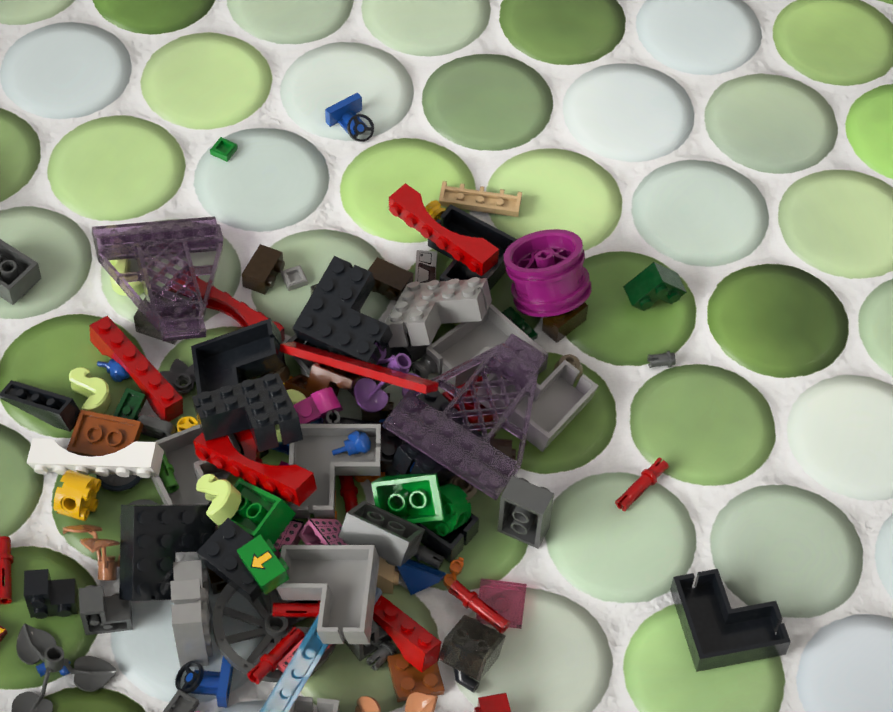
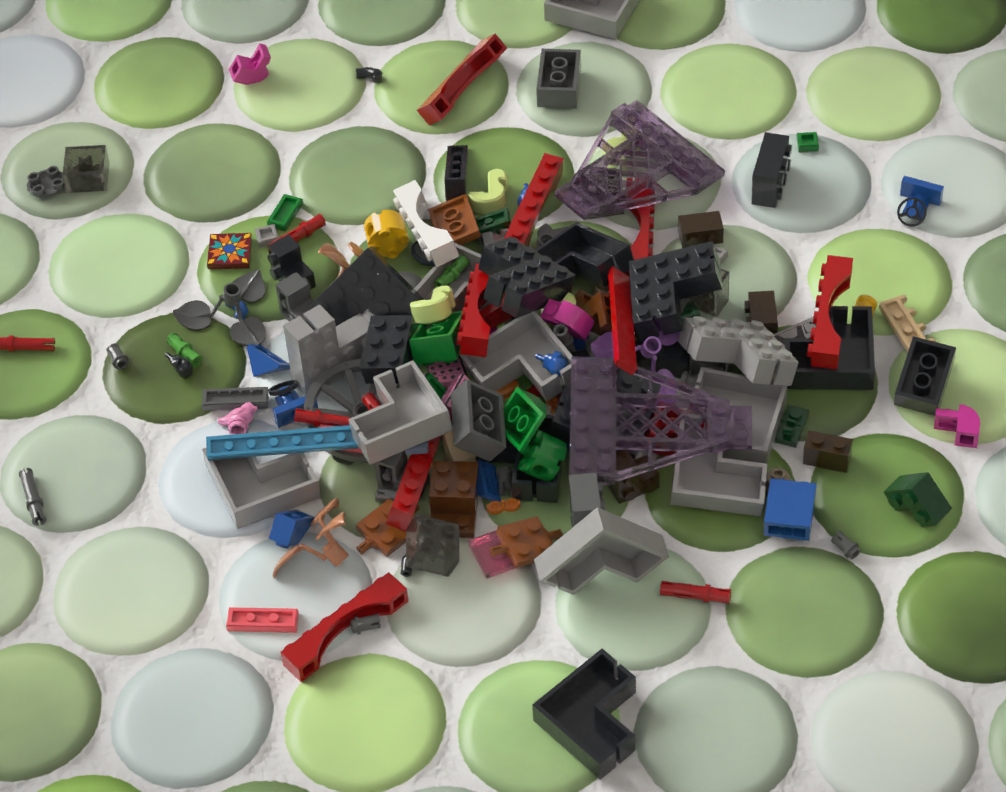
camera: 65 degrees right, 5 degrees down
(142, 676) = (265, 361): none -> blue slope
(245, 186) = (771, 170): none -> black brick
(263, 564) = (381, 354): green brick -> none
(427, 601) = (455, 494): none -> reddish brown bracket
(472, 601) = (480, 527): red pin -> none
(512, 575) = (524, 541): none -> dark orange plate
(541, 208) = (924, 376): none -> black brick
(547, 273) = (849, 404): magenta wheel -> none
(577, 523) = (600, 544): none -> light grey piece
(599, 219) = (963, 422): none -> dark pink brick
(612, 372) = (789, 509): none -> blue brick

